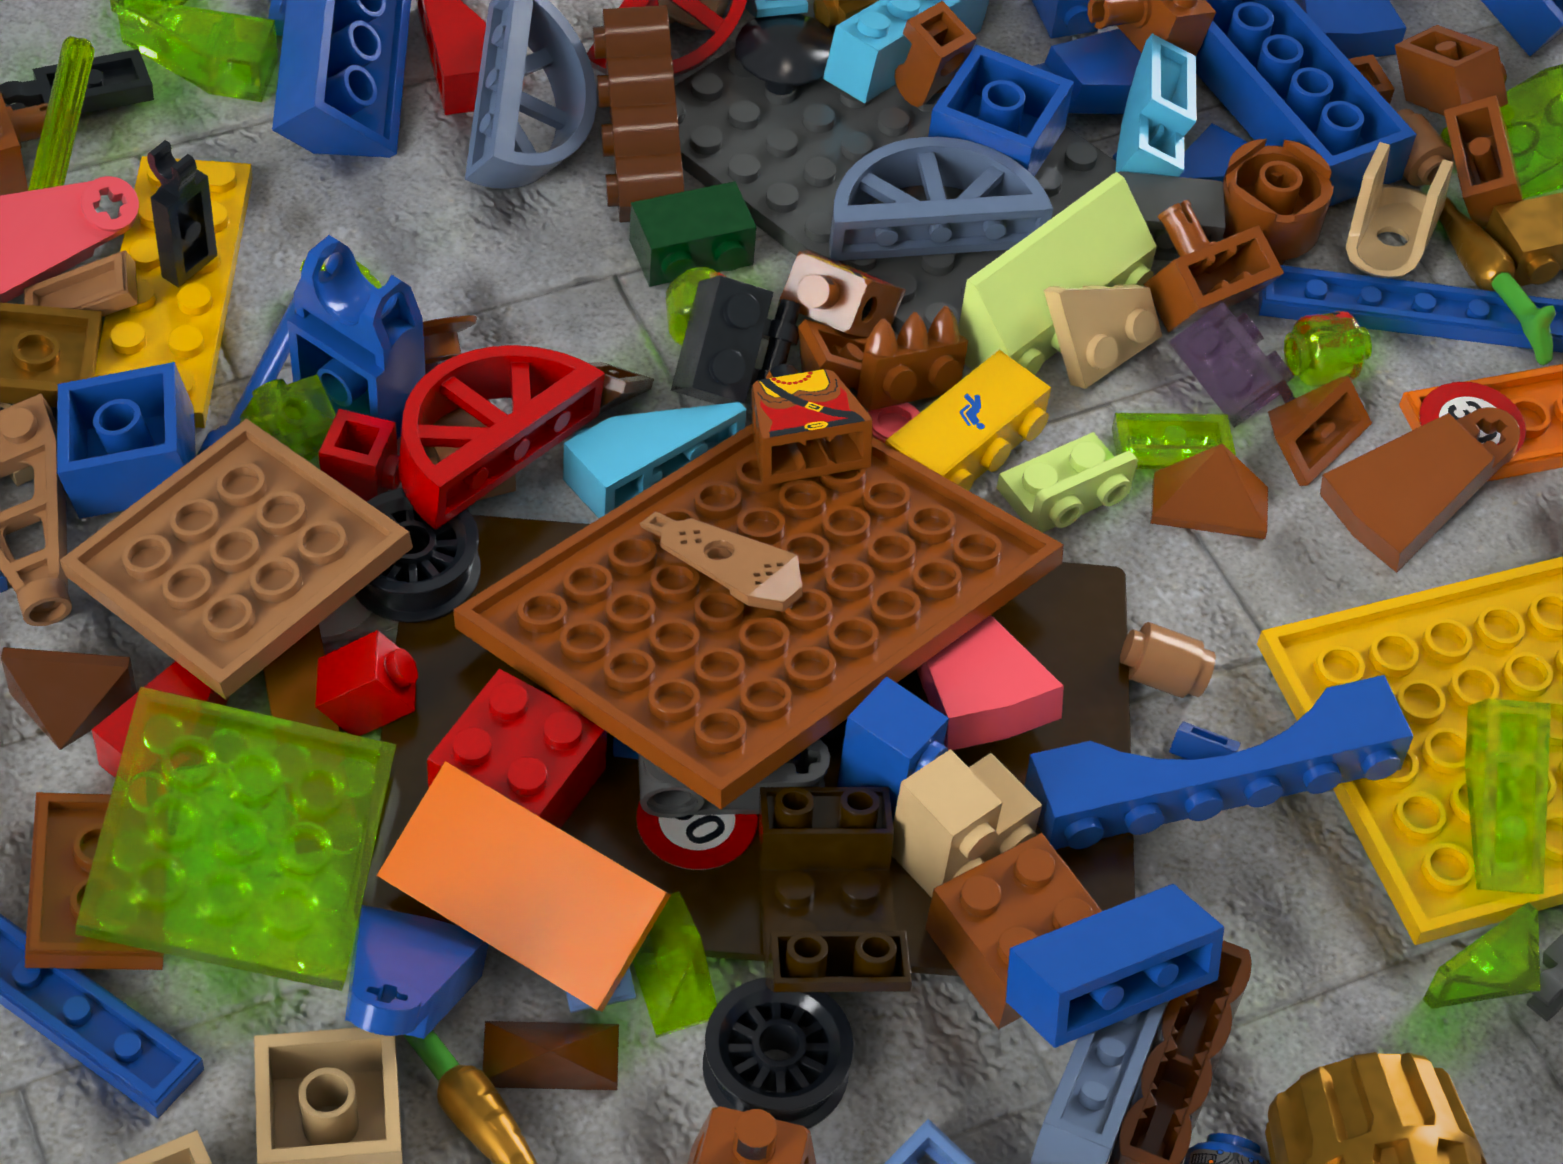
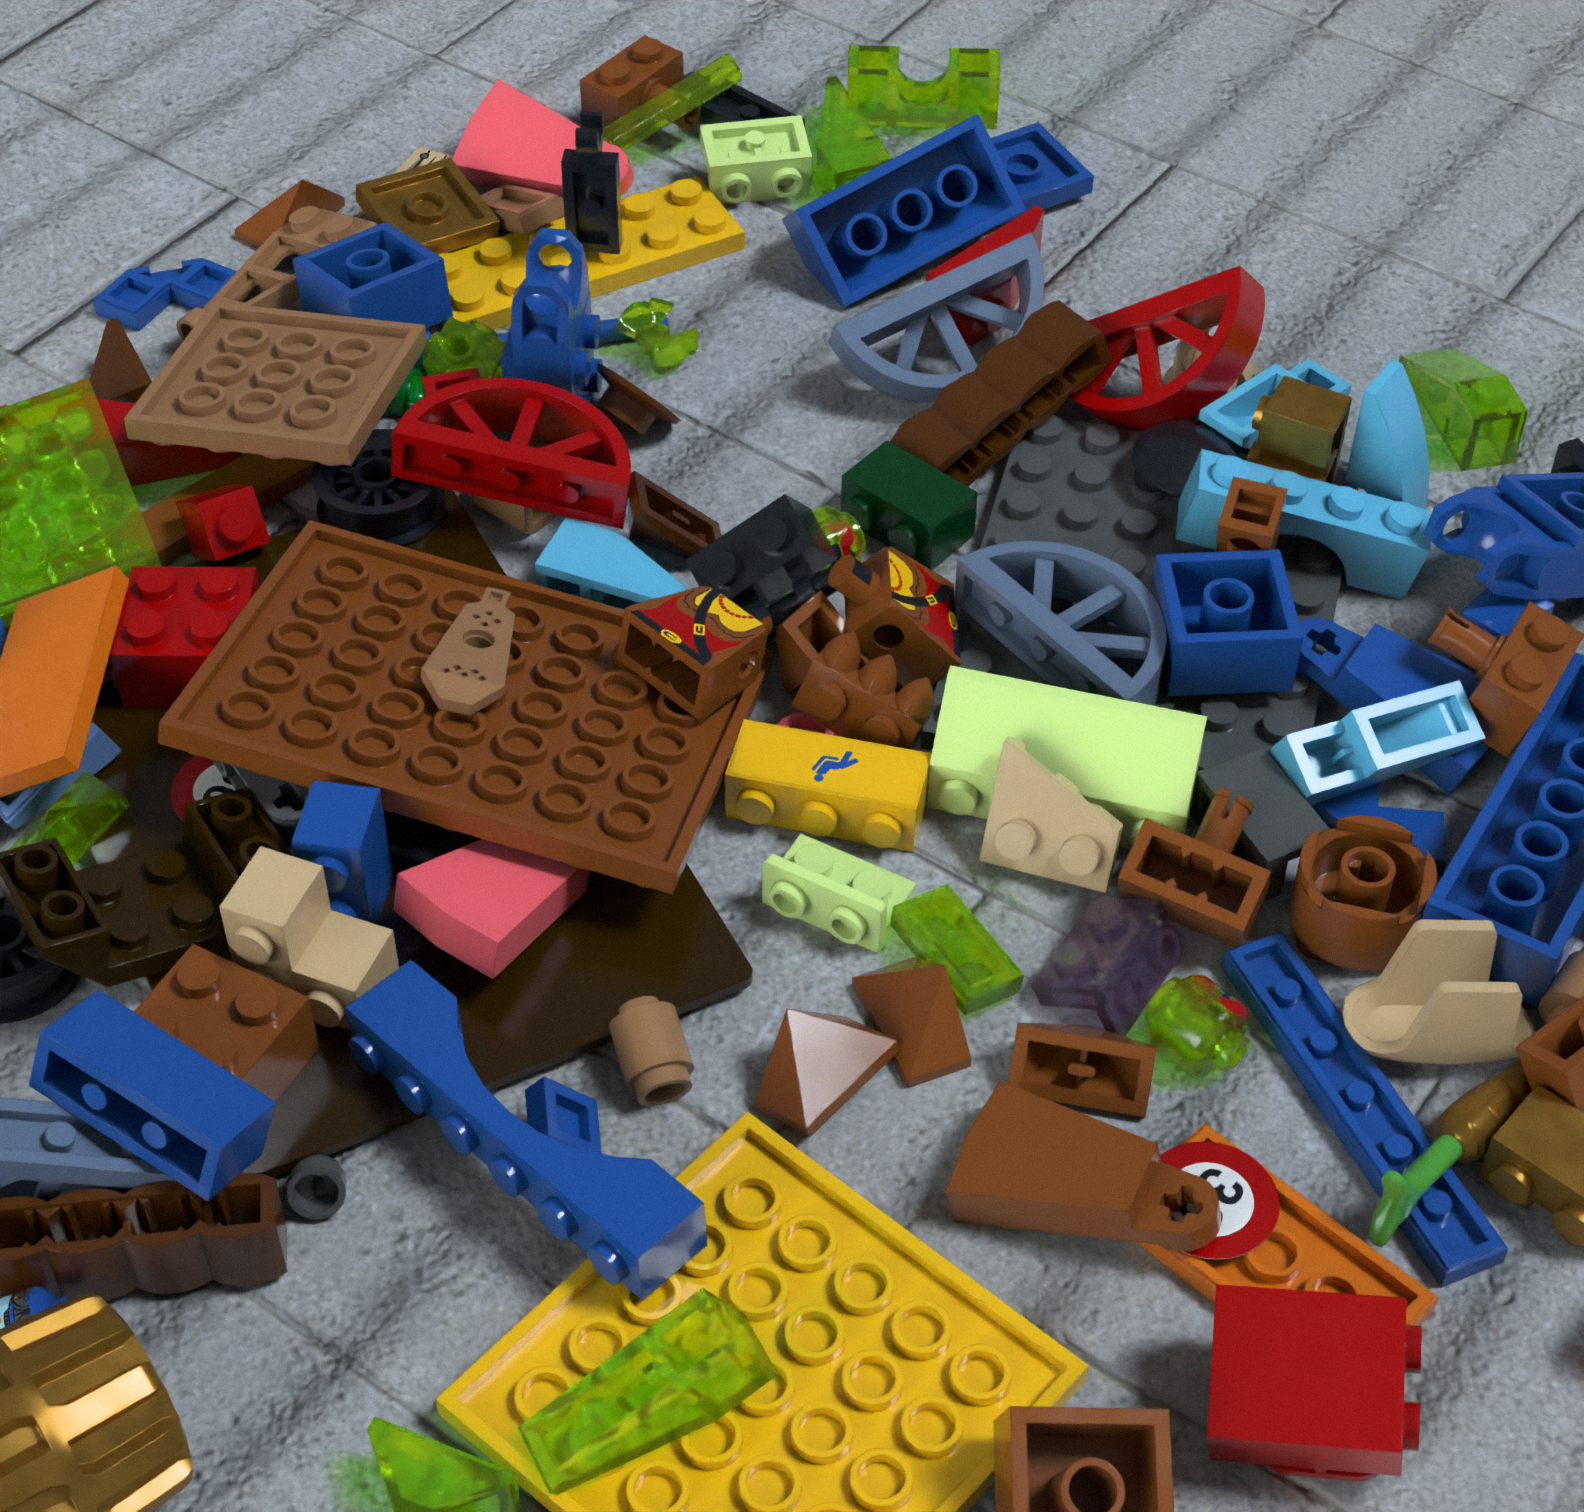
camera: 65 degrees right, 5 degrees down
(170, 100) = (757, 159): none -> yellowish green bracket
(1238, 575) = (819, 1067): none -> slope

